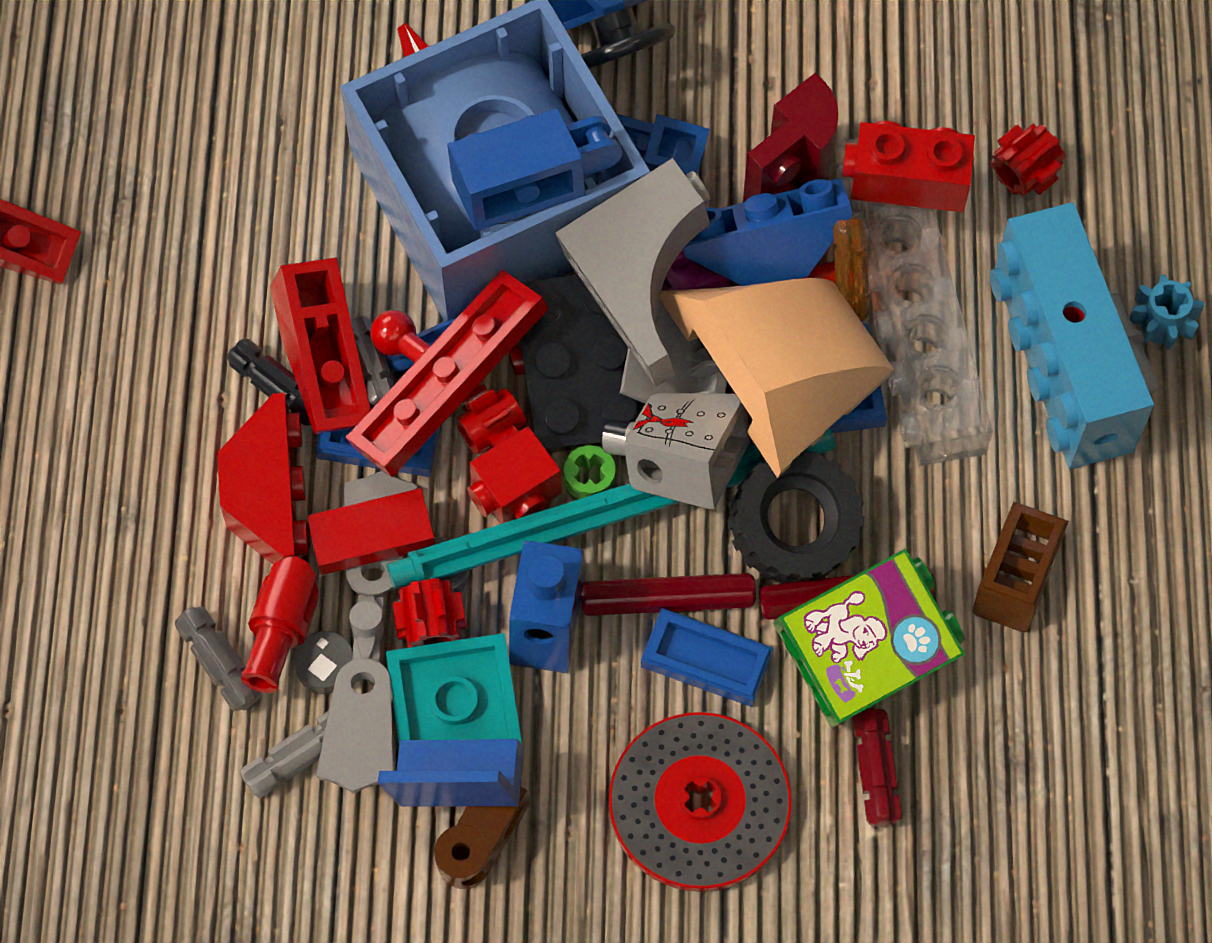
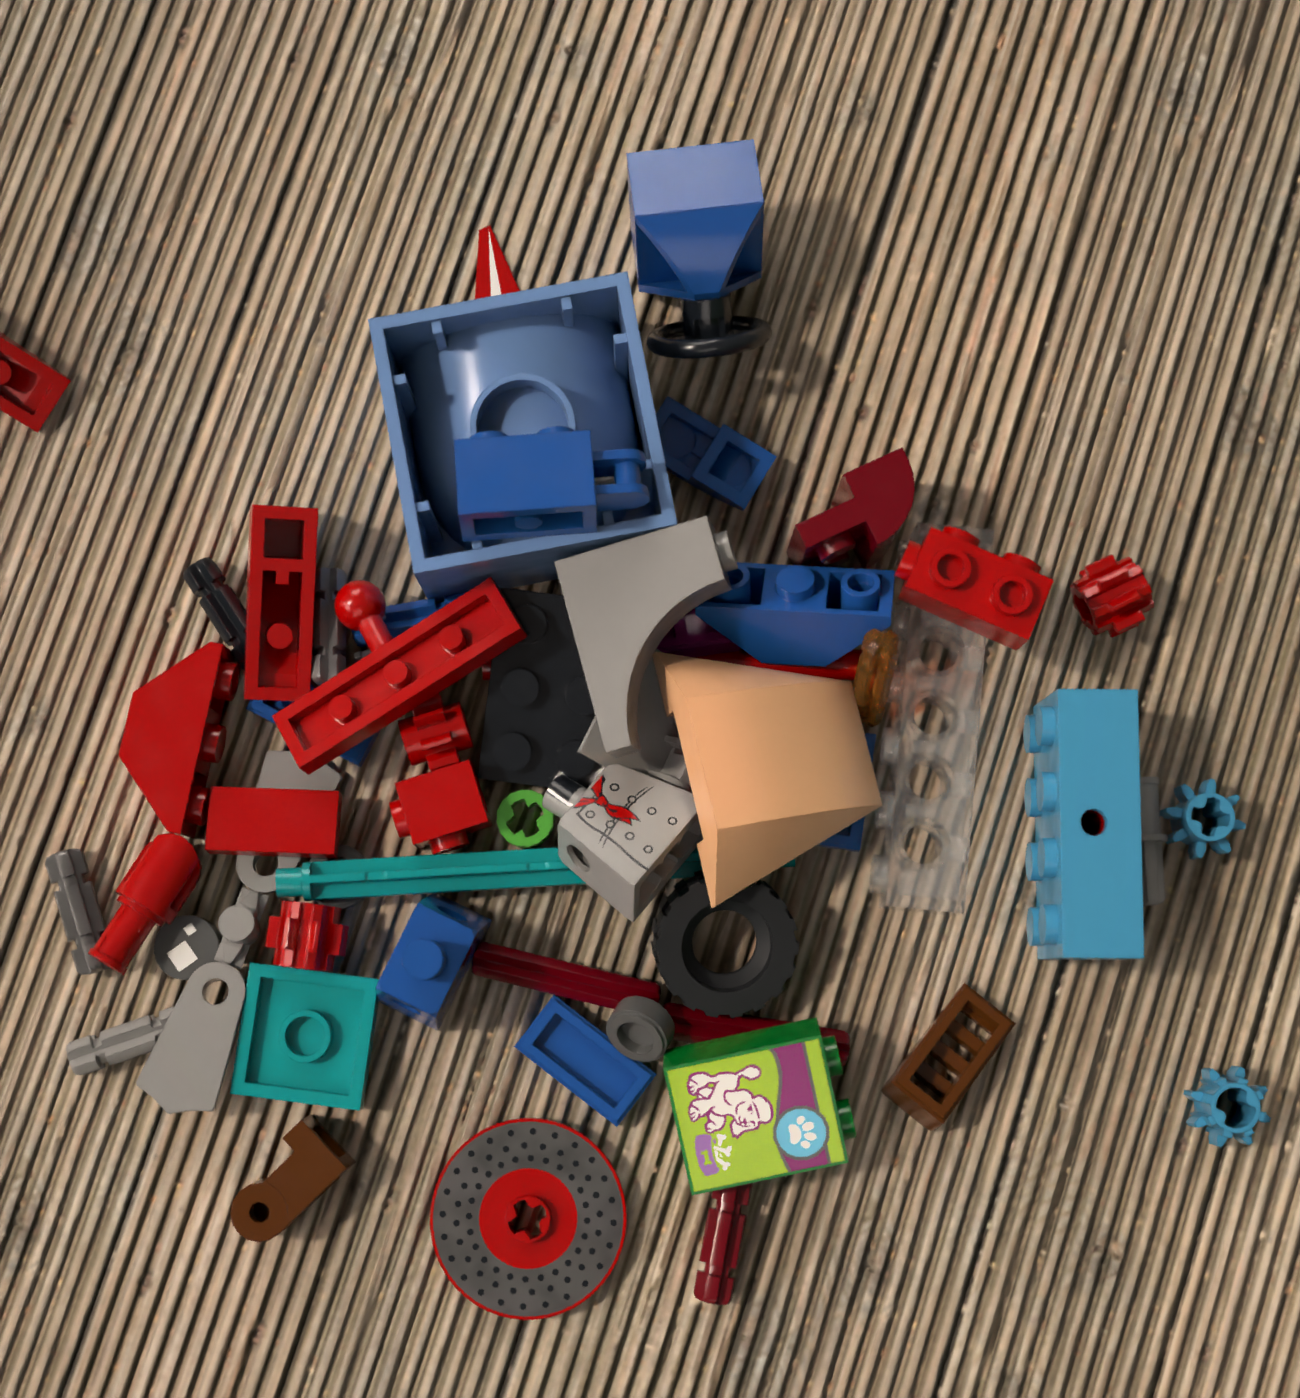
camera: 15 degrees right, 15 degrees up
(456, 773) = (274, 1134): blue panel -> none
(747, 608) = (640, 1029): none -> dark grey tile

